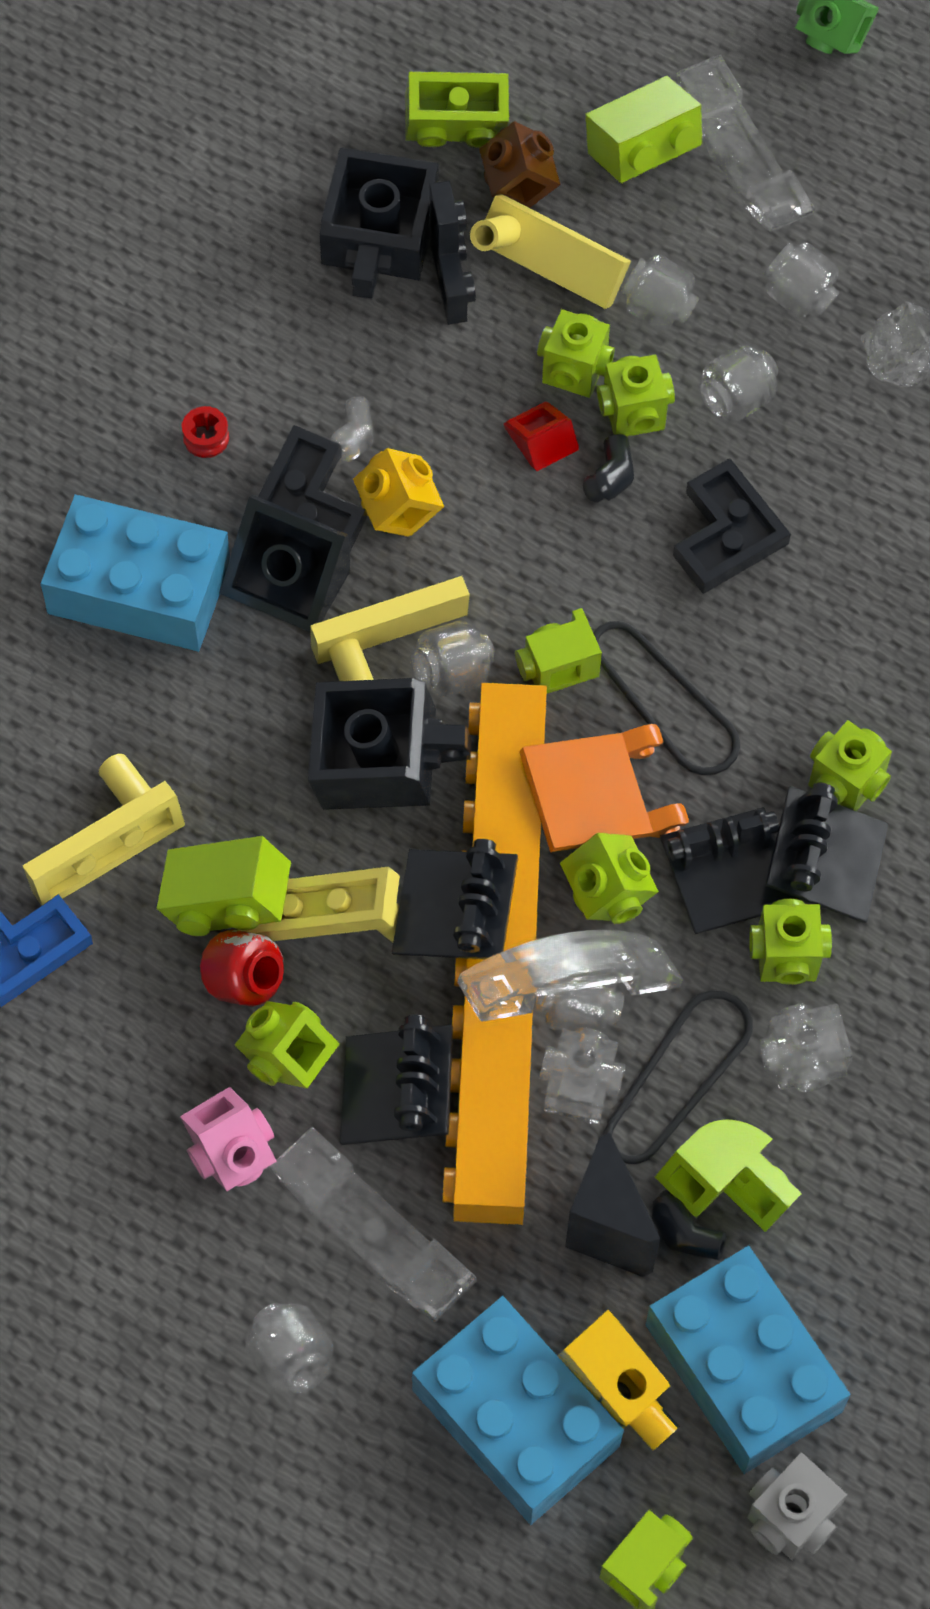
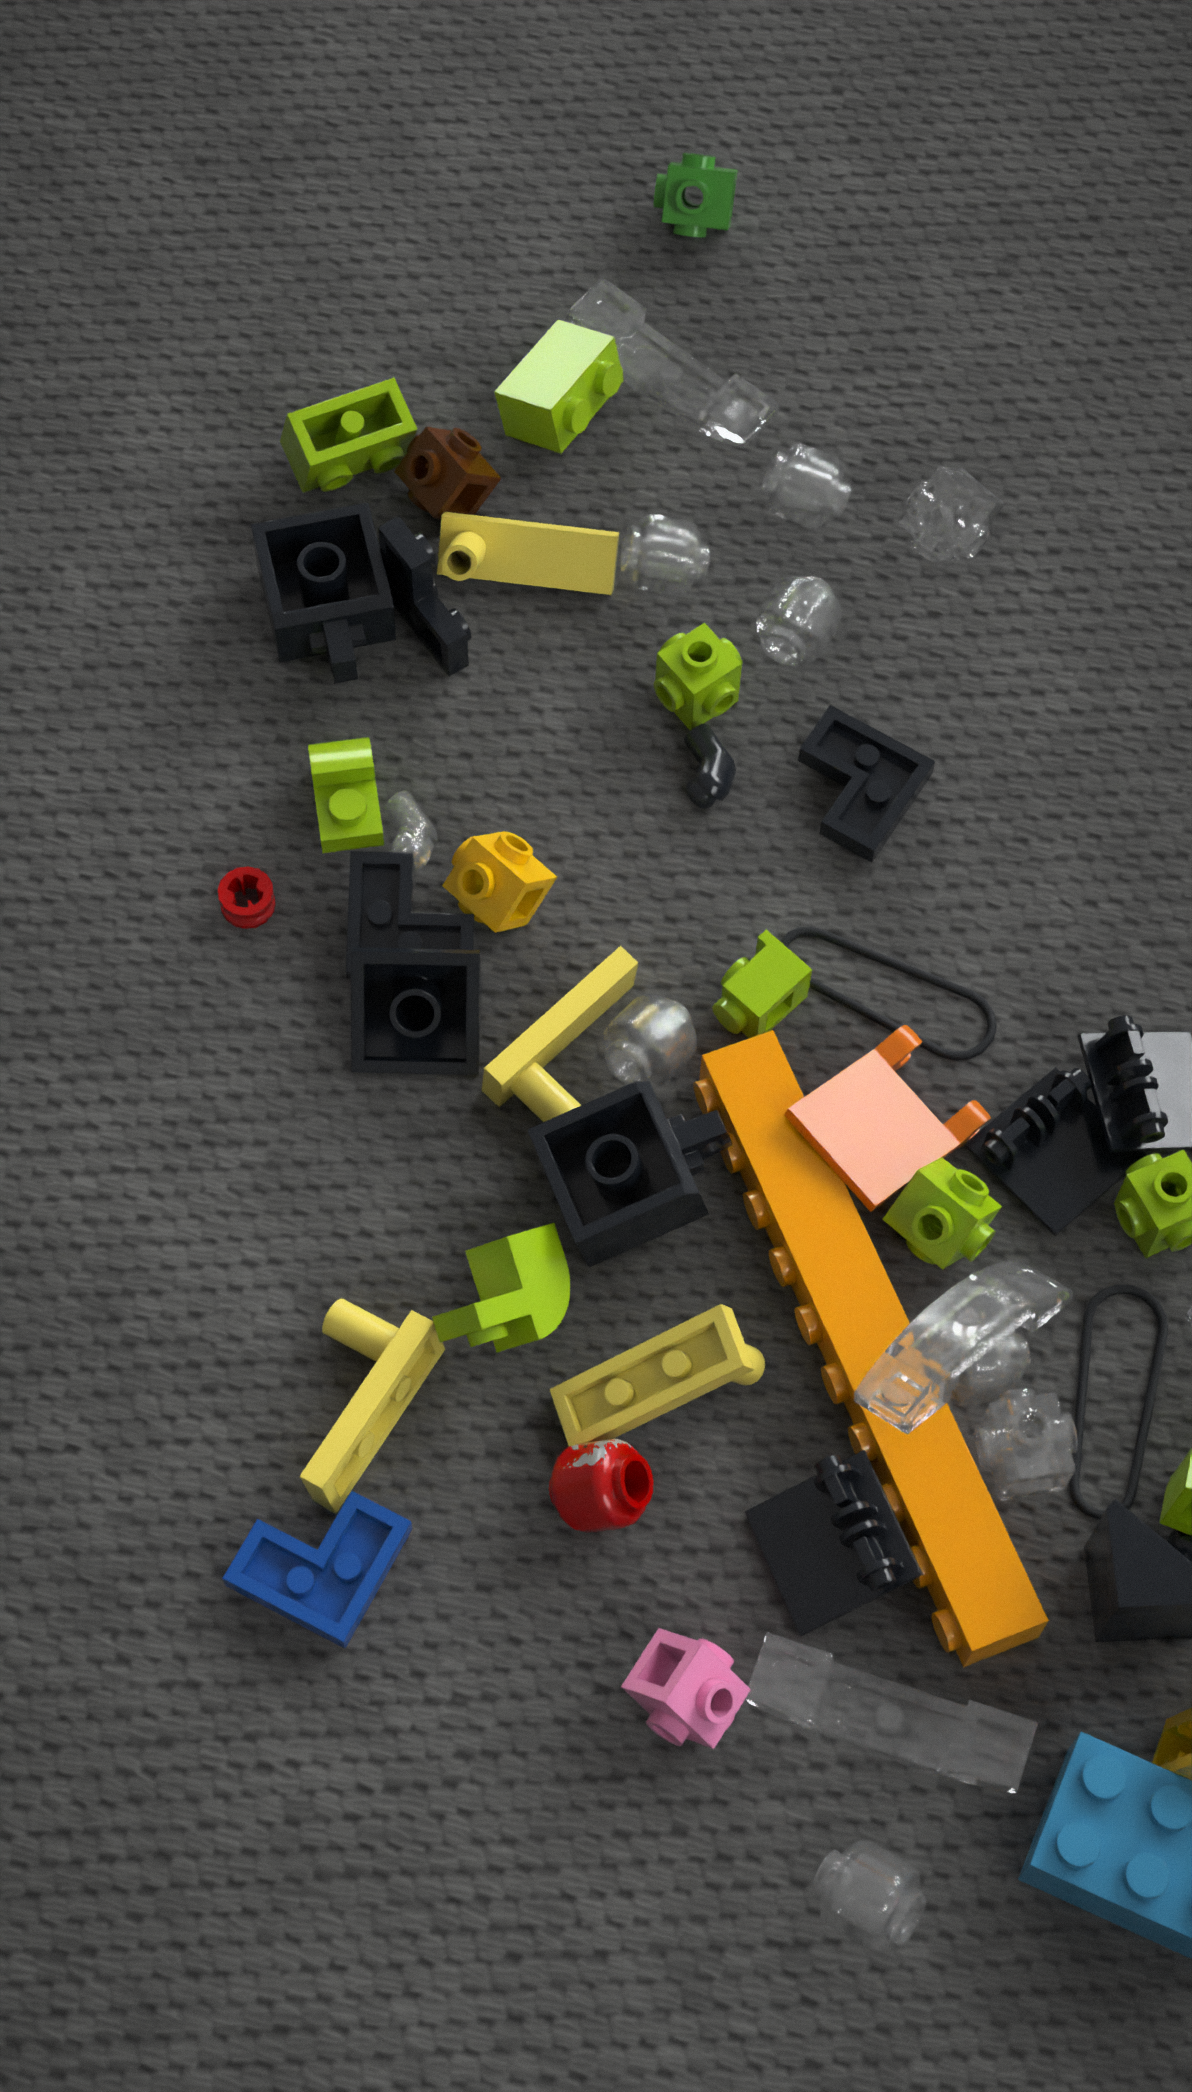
camera: 25 degrees left, 0 degrees up
(136, 572) = (253, 1086): dark azure brick -> none
(224, 885) = (538, 1402): lime brick -> none
(257, 799) = (520, 1291): none -> lime brick
(286, 1044) = (695, 1551): lime brick -> none
(313, 380) = (346, 795): none -> lime brick
(455, 902) = (804, 1312): black hinge -> none
(543, 435) = (614, 756): red slope -> none
(575, 352) = (611, 654): lime brick -> none
(852, 763) = (1127, 982): lime brick -> none

